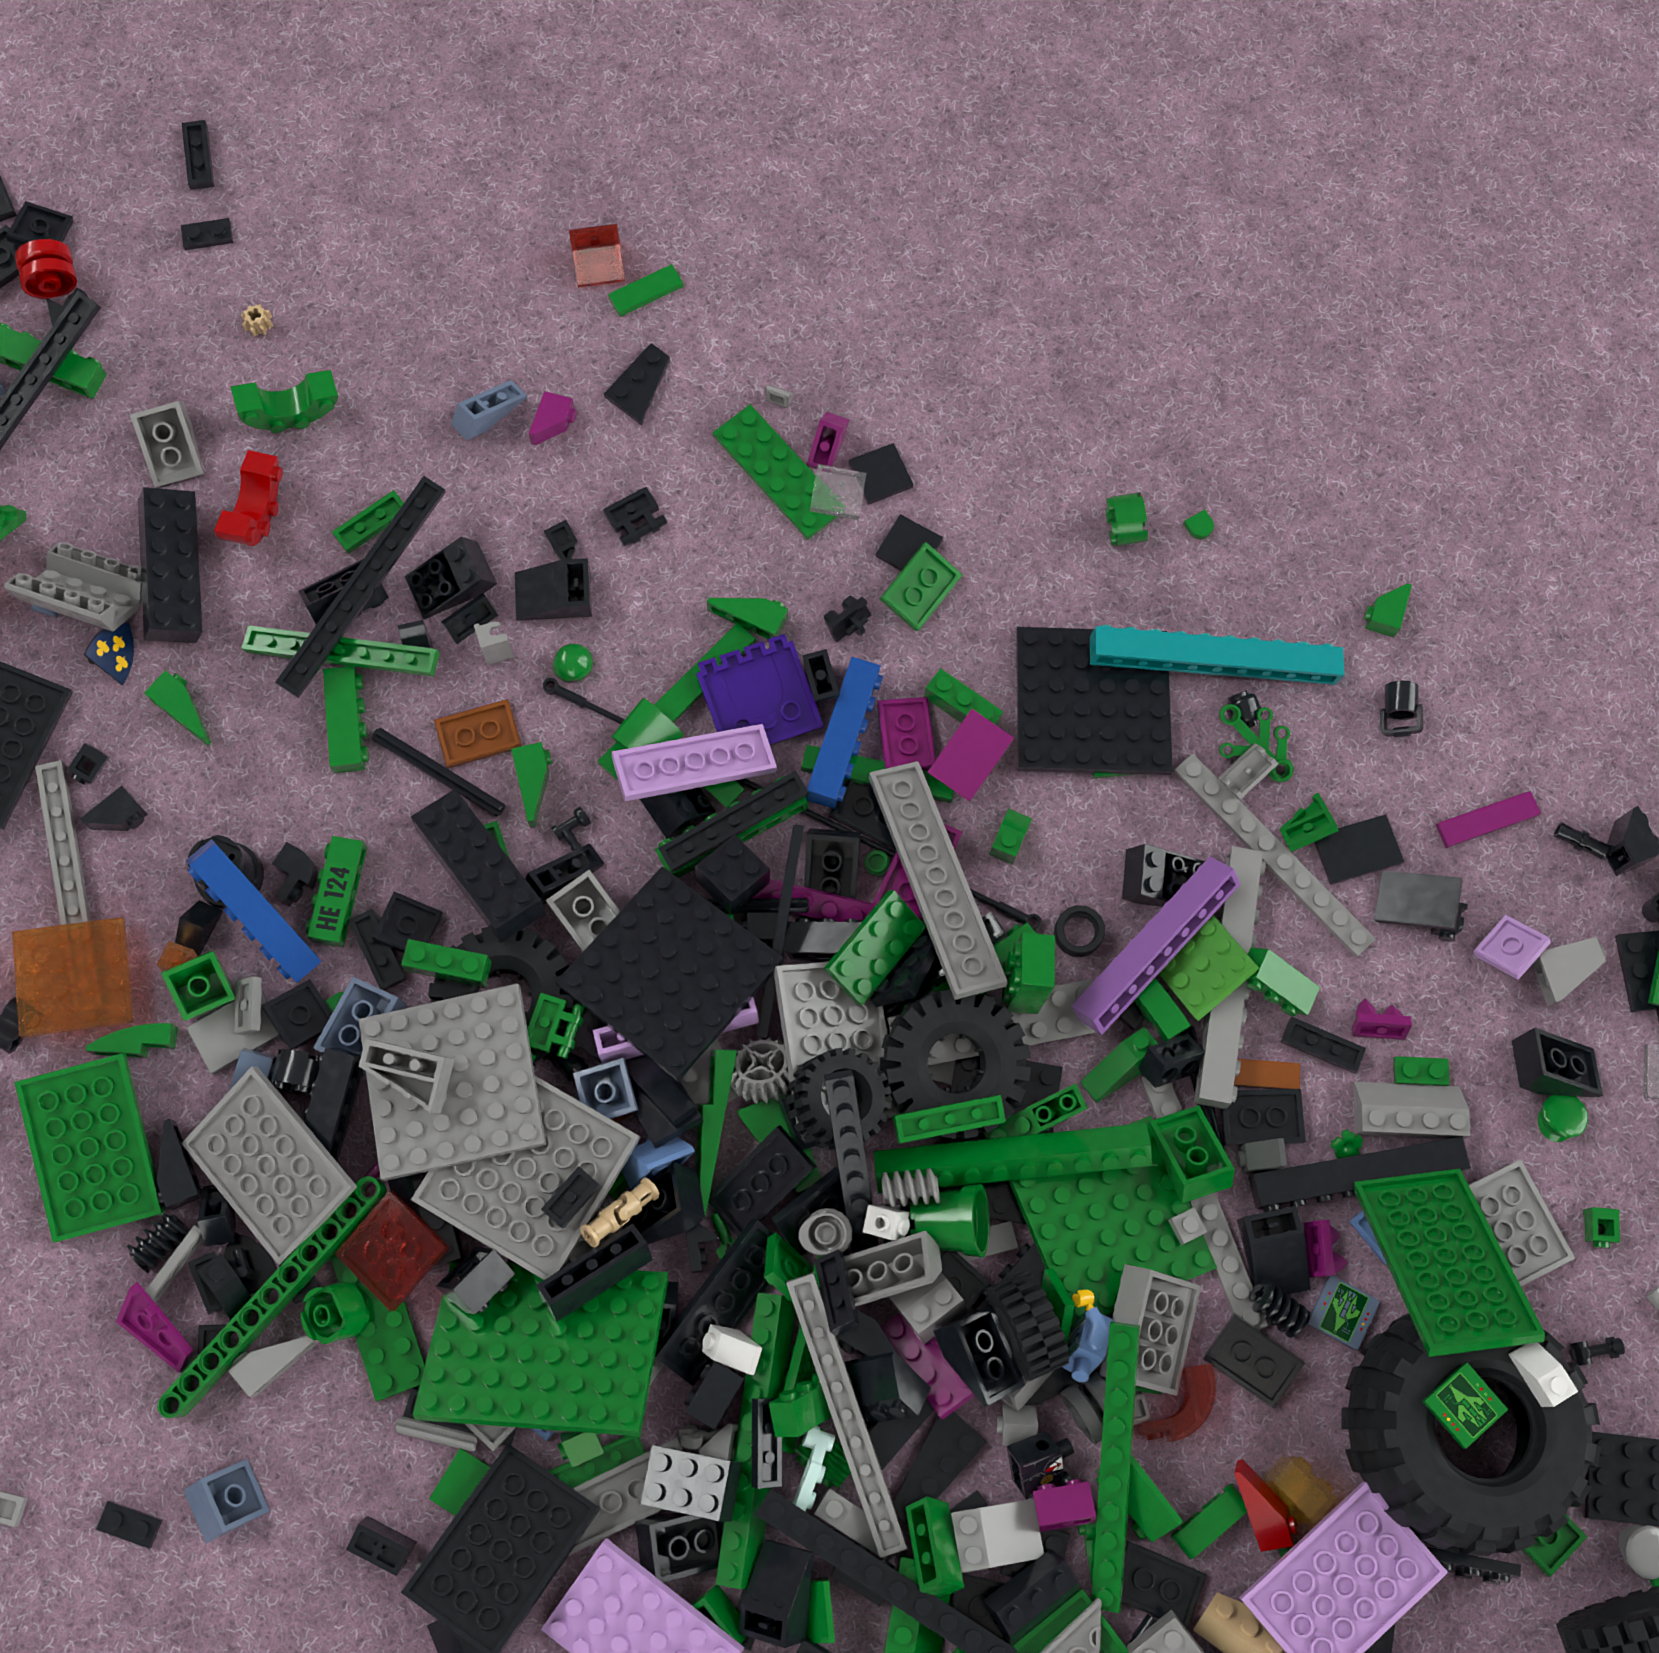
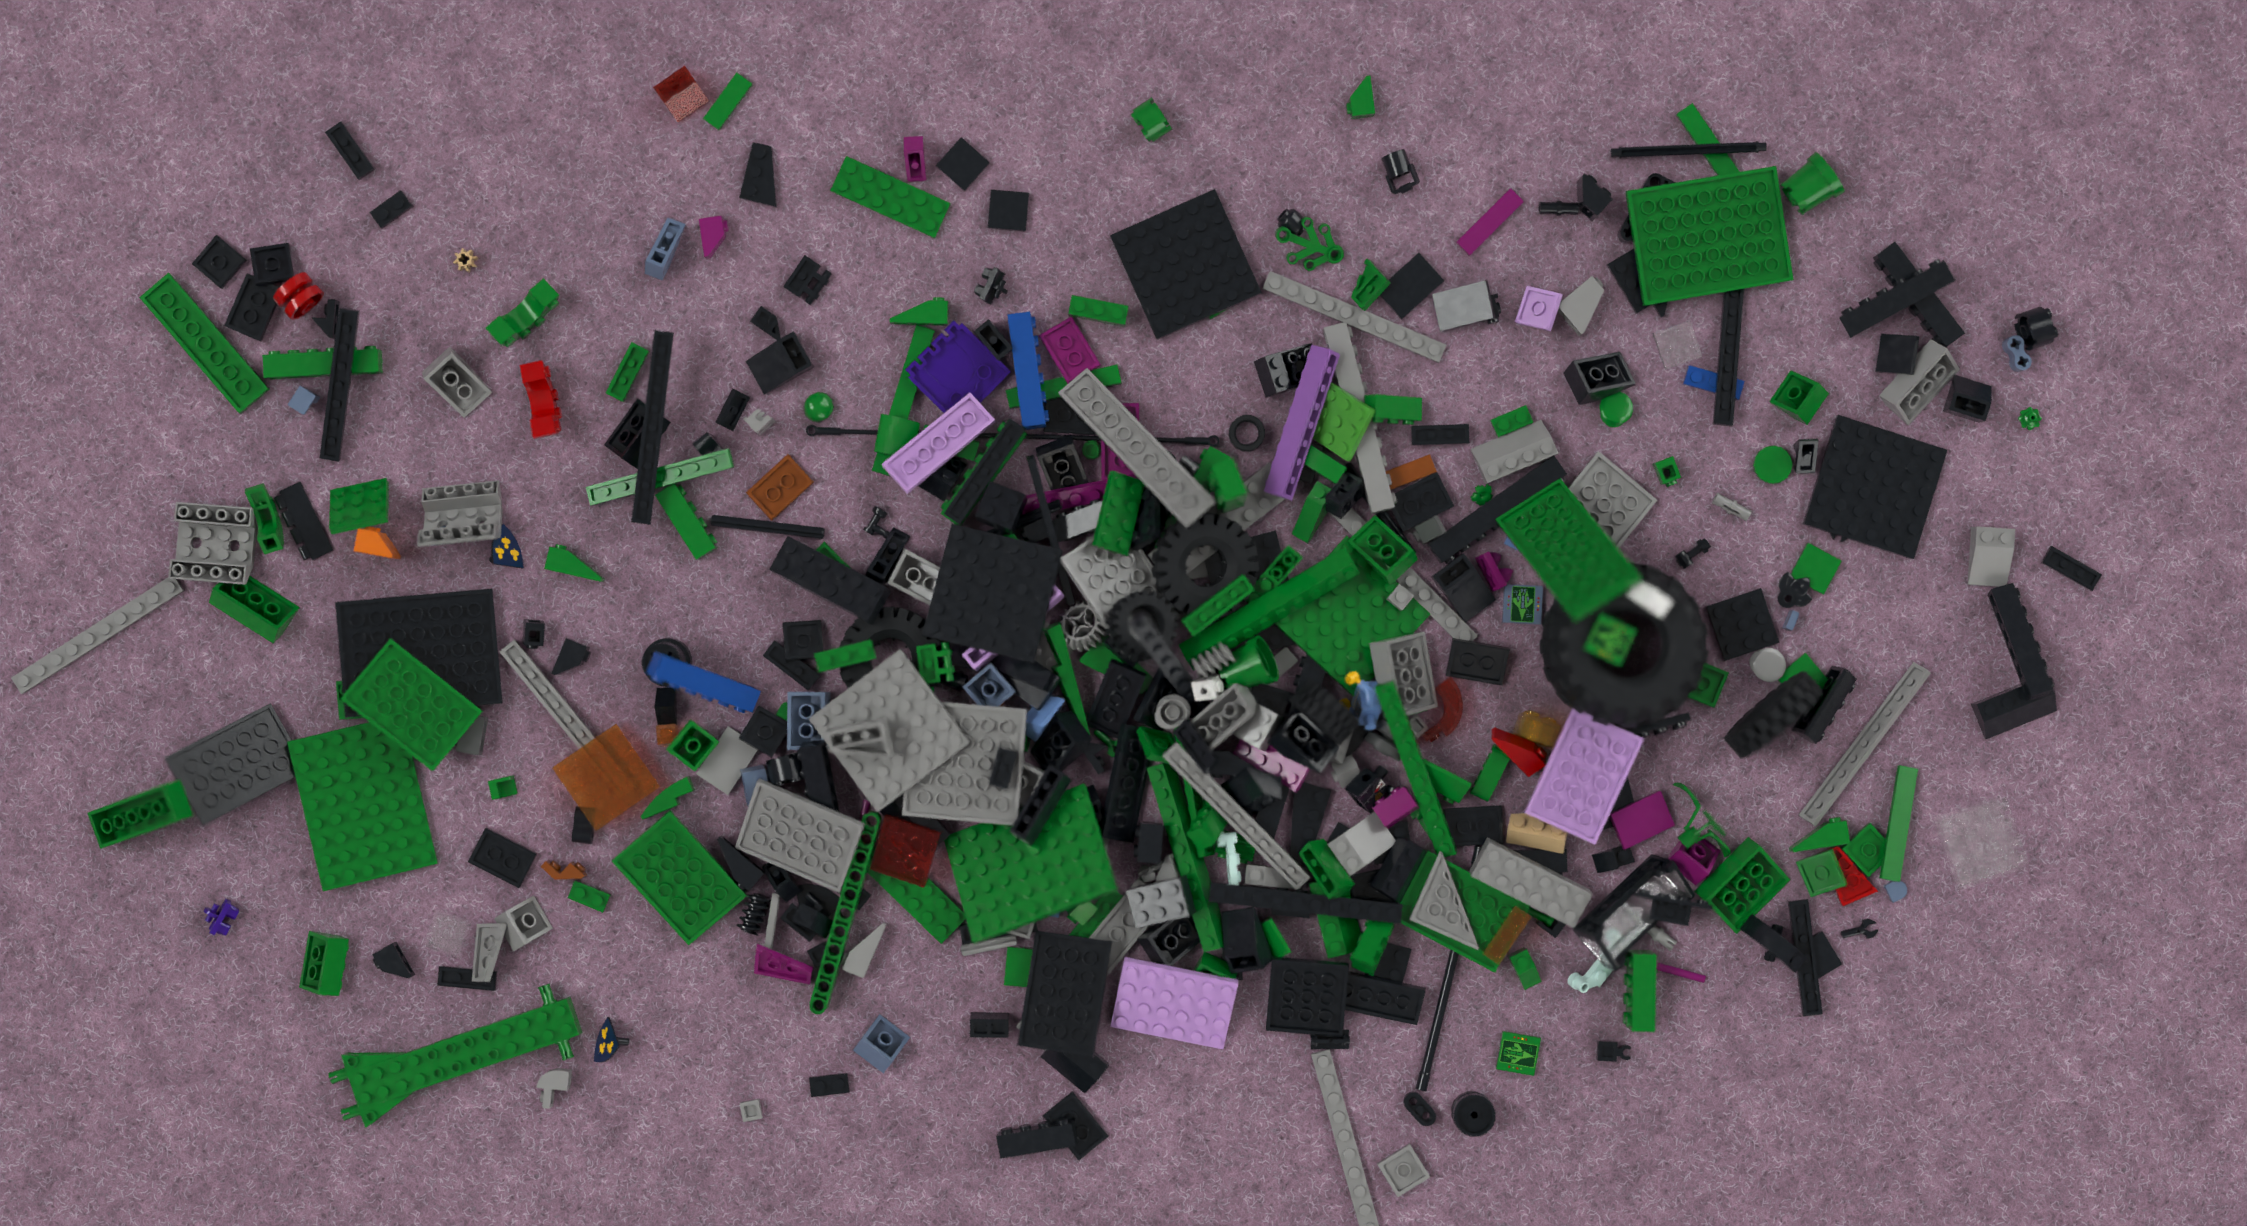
camera: 20 degrees left, 15 degrees up
(169, 565) = (510, 471): black brick -> none
(248, 1005) = (729, 742): light grey plate -> none
(299, 870) = (714, 637): black brick -> none
(334, 1312) = (888, 904): green brick -> none
(337, 891) = (745, 640): green brick -> none
(450, 577) = (704, 387): black slope -> none
(476, 1280) = (967, 843): slope -> none
(532, 773) = (832, 499): green slope -> none
(619, 1212) = (1038, 759): tan piece -> none
(731, 1348) = (1146, 809): white slope -> none
(765, 1447) = (1196, 859): black plate -> none
(779, 395) = (863, 137): light grey slope -> none
(838, 492) = (940, 195): clear tile -> none
(920, 586) = (1030, 237): green tile -> none
(970, 755) = (1120, 347): magenta tile -> none
(1010, 836) = (1172, 388): green slope -> none
(1060, 1300) = (1338, 688): green tile -> none
(1199, 525) = (1204, 96): green tile -> none
(1216, 655) = (1256, 193): teal brick -> none
(1248, 771) = (1312, 268): light grey hinge -> none
(1279, 1308) = (1479, 622): black piece -> none
(1386, 1025) = (1464, 405): magenta tile -> none

